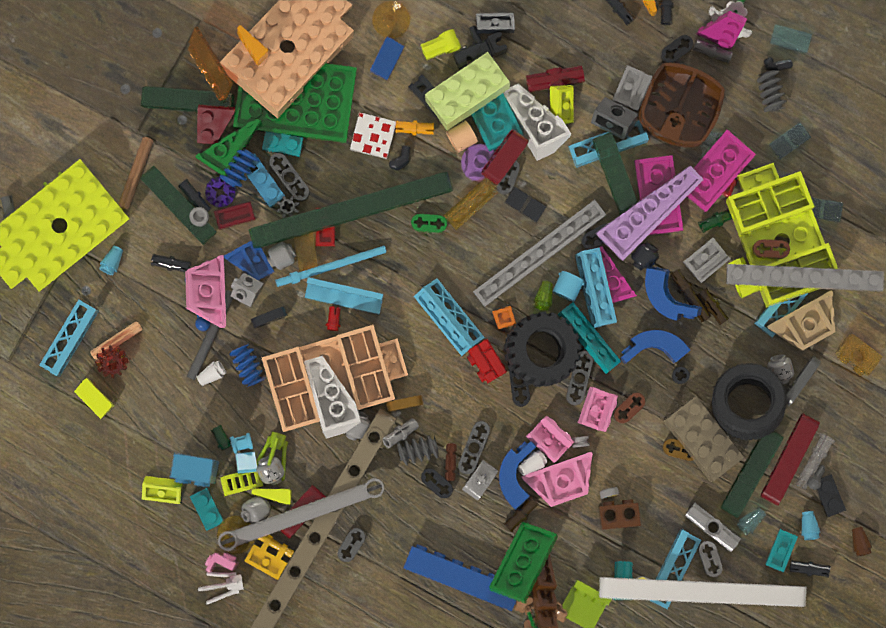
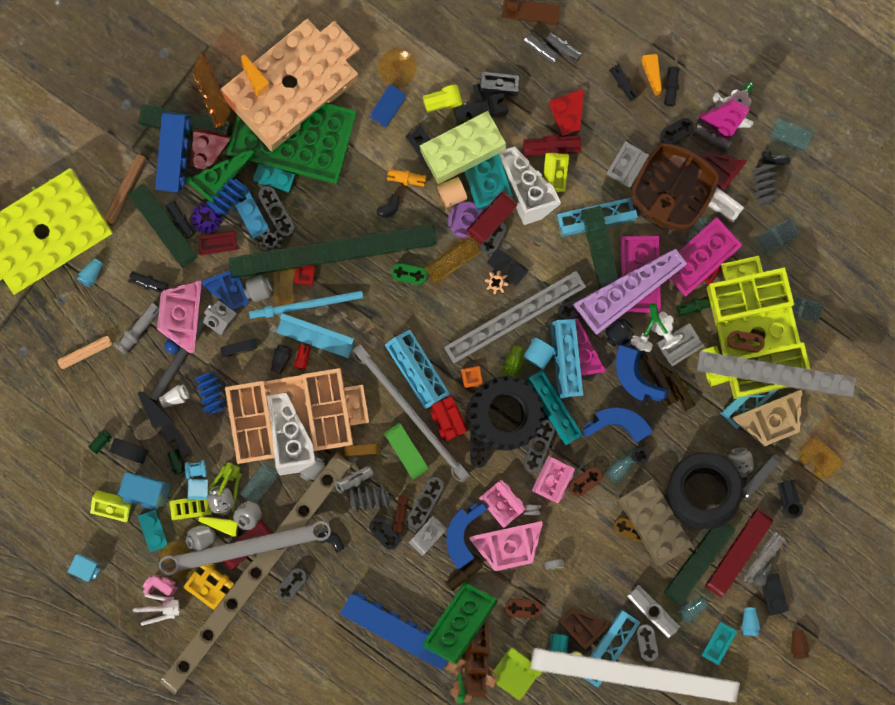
camera: 10 degrees right, 0 degrees up
(73, 342) = (42, 347): medium azure fence -> none
(94, 398) = (55, 406): neon yellow slope -> none
(115, 355) = (80, 366): clear red gear -> none
(143, 426) = (100, 441): none -> dark green pin
(144, 554) = (84, 568): none -> medium azure brick
(161, 318) = (131, 336): none -> light grey pin
(173, 432) = (128, 451): none -> black tyre
(178, 130) = (172, 152): none -> blue brick
(199, 216) = (181, 239): light grey tile -> none
(200, 397) = (160, 419): none -> black slope
(299, 482) = (247, 515): none -> light grey head
(306, 450) = (259, 484): none -> clear light blue tile
(312, 322) = (280, 358): none -> black cone
(373, 135) = (364, 180): white tile -> none
(387, 495) = (333, 539): none -> black arm
(448, 399) = (406, 451): none -> bright green beam
(499, 408) = (455, 466): none -> light grey piece
(517, 226) = (502, 283): none -> light nougat gear
(533, 462) = (481, 525): white cone -> none
(566, 43) = (568, 112): none -> red wing
(583, 545) = (523, 613): none -> copper beam
(614, 118) = (606, 192): dark grey brick -> none
(619, 520) = (561, 593): reddish brown brick -> none
(645, 551) = (583, 627): none -> reddish brown wing
(661, 392) = (620, 469): none -> clear light blue cone
(683, 242) = (662, 325): none -> white plant
(729, 78) = (725, 167): none -> dark red wing
(734, 117) = (725, 205): none -> white tile
(810, 568) = (745, 664): black pin -> none
(833, 397) = (789, 497): none -> black piece

